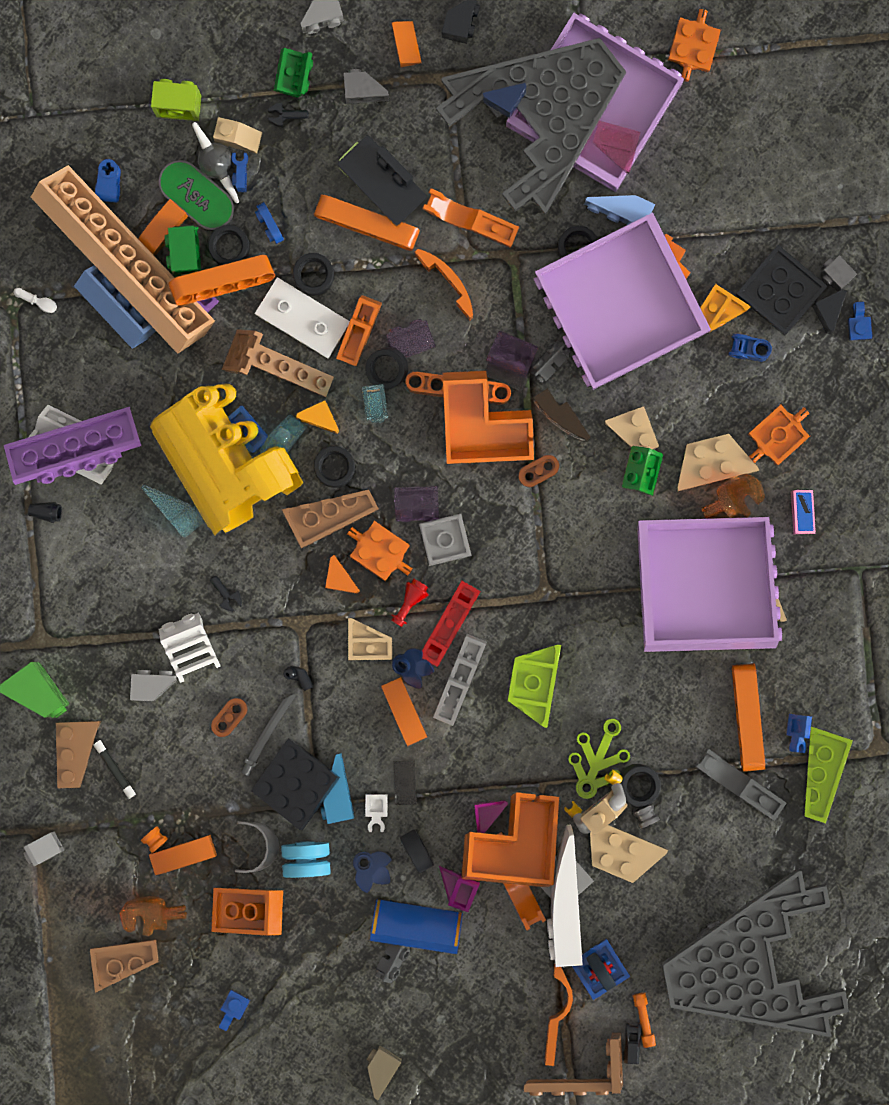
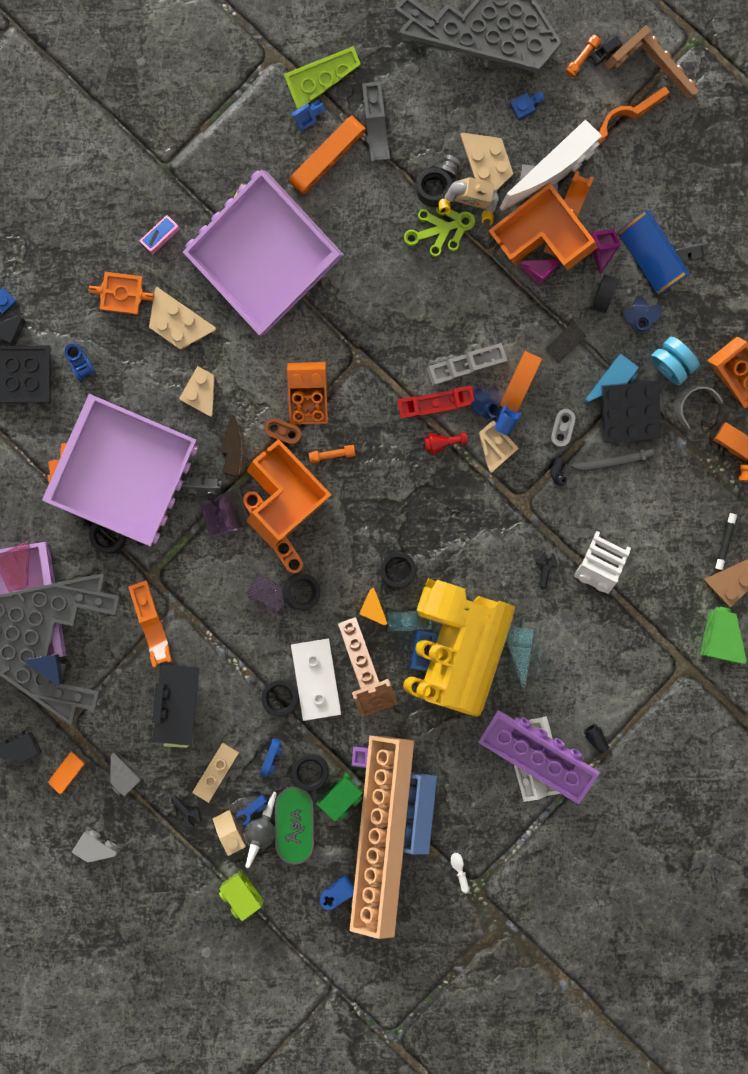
camera: 130 degrees left, 0 degrees up
(150, 687) = (651, 565): light grey slope -> none
(154, 235) = (329, 830): orange slope -> none
(221, 280) = (338, 755): orange beam -> none
(229, 717) = (624, 493): dark orange plate -> none
(293, 72) = (152, 832): green bracket -> none
(298, 167) = (215, 772): none -> tan plate
(327, 516) = (436, 546): medium nougat wing -> none
(332, 714) = (562, 428): none -> light grey plate
(338, 578) = (470, 501): orange slope -> none
(359, 330) = (291, 633): orange slope -> none
(366, 222) = (214, 692): orange beam -> none
(375, 403) = (332, 577): clear light blue slope -> none
(376, 807) = (600, 346): white plate -> none
(379, 551) = (428, 491): orange plate -> none
(380, 669) = (507, 421): none -> blue piece
(416, 503) = (375, 493): clear purple bracket -> none
(429, 262) = (203, 626): orange slope -> none
(445, 539) = (382, 453): light grey plate -> none
(491, 480) = (348, 451): none -> orange bar
(534, 683) = (426, 314): lime wing -> none
(554, 521) = (307, 393): none -> orange slope
(600, 969) = (574, 109): blue plate -> none
(620, 208) = (55, 525): light blue slope -> none
(642, 470) = (223, 363): green bracket -> none
(644, 929) = (525, 105): none -> blue plate
(721, 307) = (66, 404): light orange wing -> none
(732, 495) = (190, 288): clear orange piece -> none

